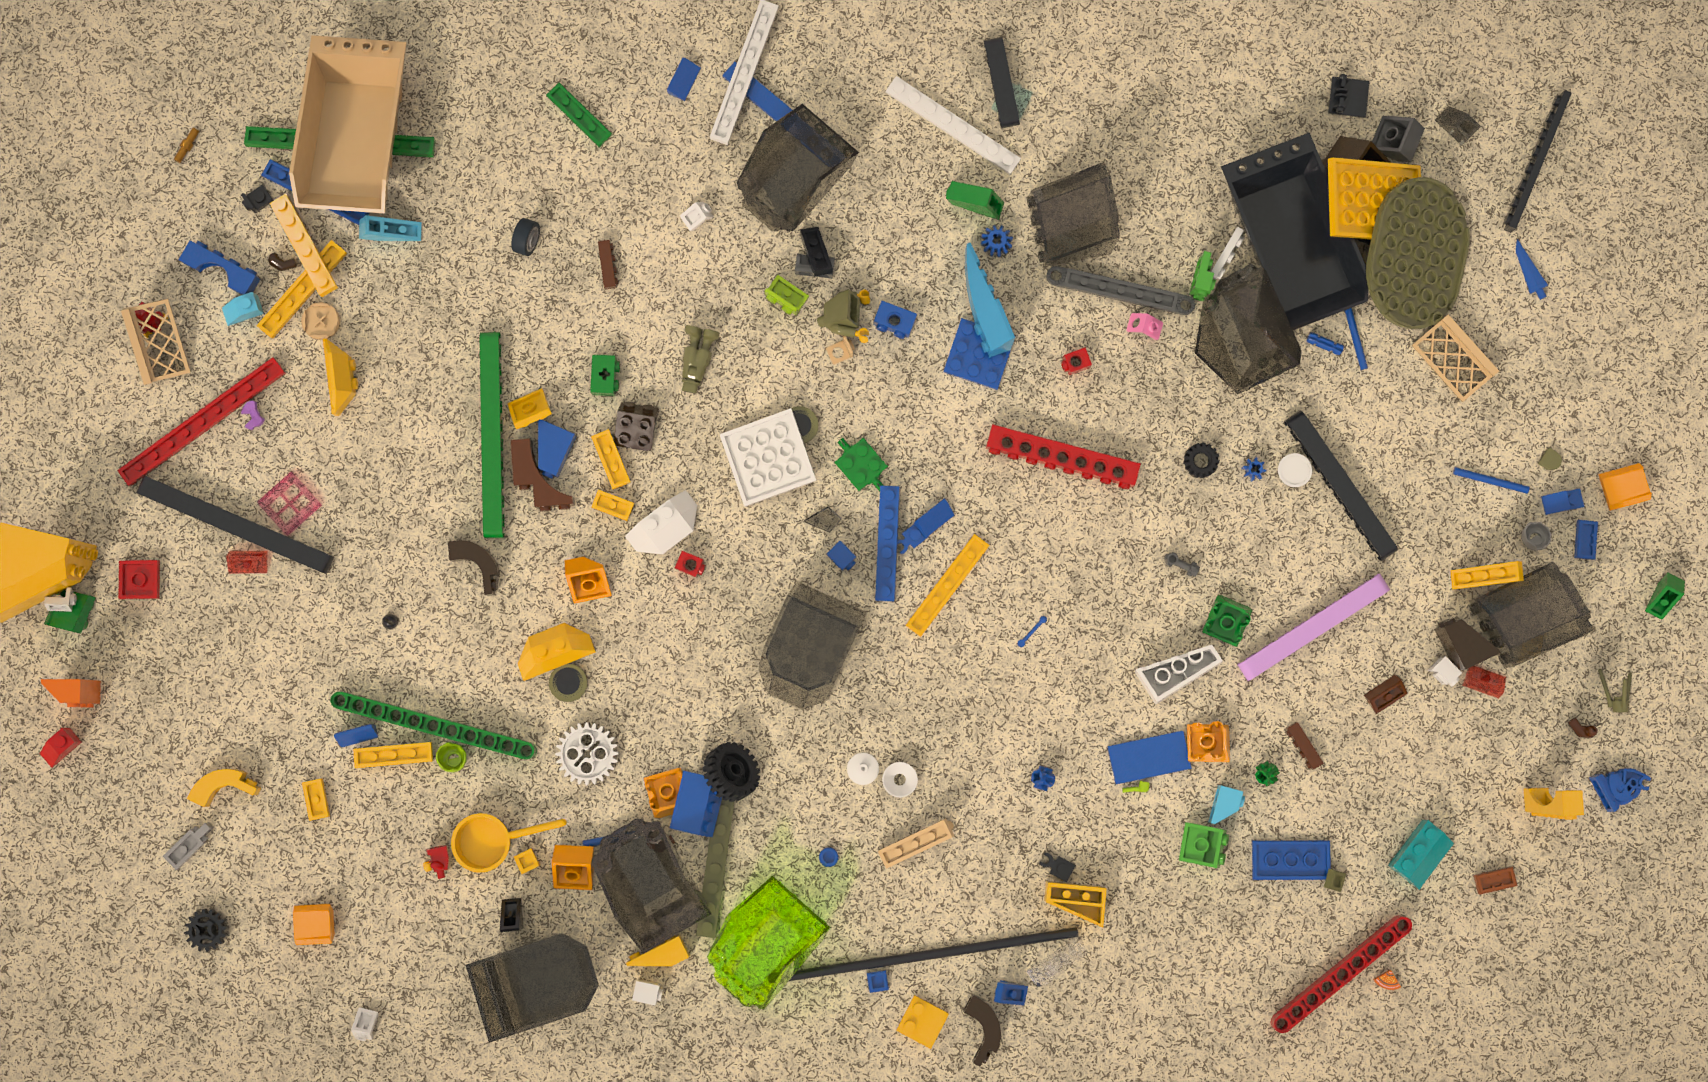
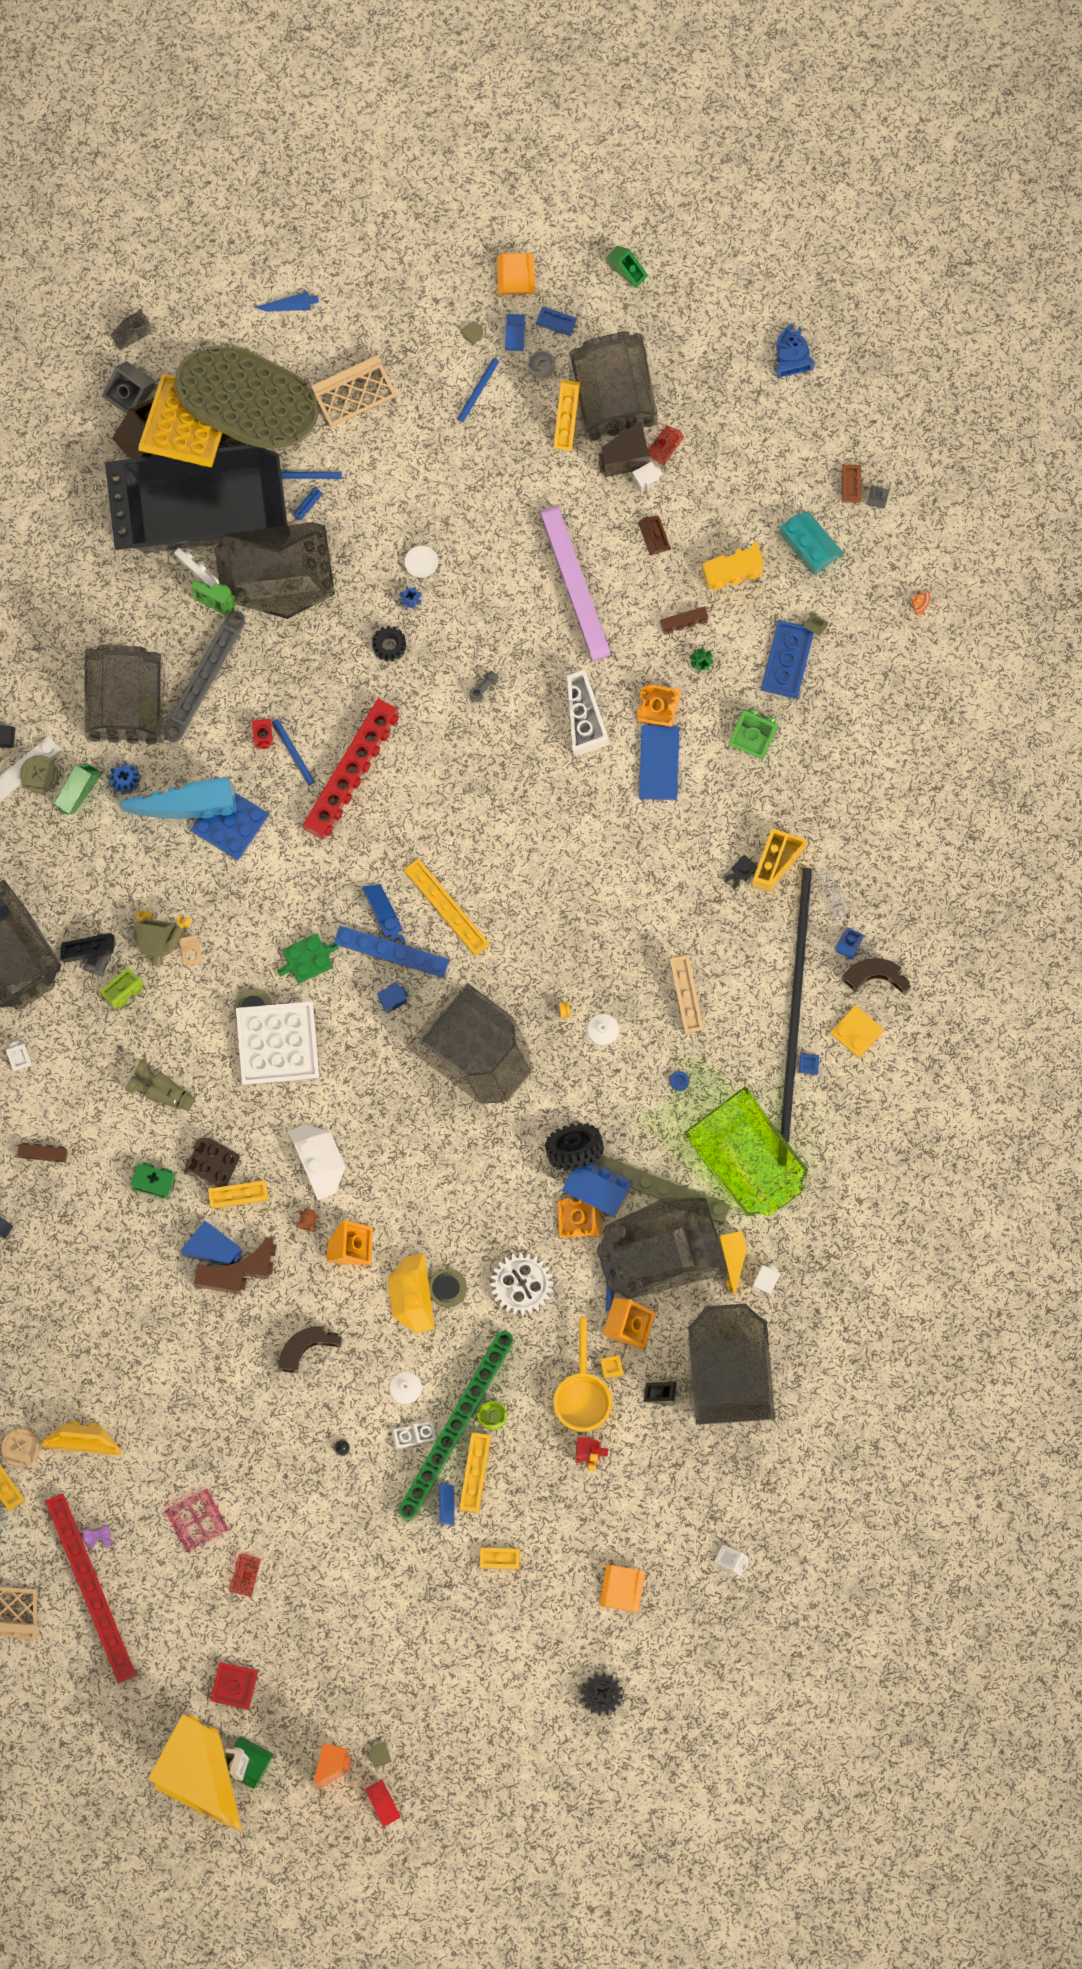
camera: 75 degrees left, 10 degrees down
(104, 733) = (379, 1755): none -> olive tile
(187, 846) = (514, 1695): light grey hinge -> none
(210, 784) = (458, 1659): yellow arch -> none
(235, 524) = (204, 1575): black beam -> none
(417, 687) = (413, 1435): none -> white slope
(462, 667) = (405, 1387): none -> white piece
(491, 435) = (182, 1302): green beam -> none
(529, 408) = (167, 1259): yellow plate -> none
(601, 531) = (307, 1220): none -> dark orange brick
(612, 505) = (284, 1203): yellow plate -> none
(682, 561) = (359, 1150): red brick -> none
(824, 519) = (352, 1006): clear smoke piece -> none
(871, 726) = (564, 1010): none -> yellow bush
(886, 312) = (178, 881): blue brick -> none
(899, 790) = (622, 985): white piece -> none
(979, 159) = (38, 774): none -> olive tile
(1021, 643) = (520, 852): blue hinge -> none
(1043, 778) = (654, 862): blue gear -> none
(1066, 396) = (293, 752): none -> blue bar
(1143, 787) = (685, 774): lime hand -> none
(1148, 325) = (246, 659): bright pink bracket -> none
(1225, 803) = (719, 703): medium azure slope -> none
(1227, 620) = (548, 658): green slope -> none
(1341, 484) = (446, 523): black beam -> none
(1348, 96) = (75, 421): black hinge -> none
(1350, 972) = (903, 633): red beam -> none
(1372, 783) = (733, 568): none -> yellow wedge
(1488, 911) = (878, 497): none -> dark grey tile
(1539, 153) = (192, 274): black plate -> none
(1565, 805) = (793, 399): yellow arch -> none
(1582, 731) = (733, 371): reddish brown arm -> none
(1620, 703) = (716, 331): olive plant -> none

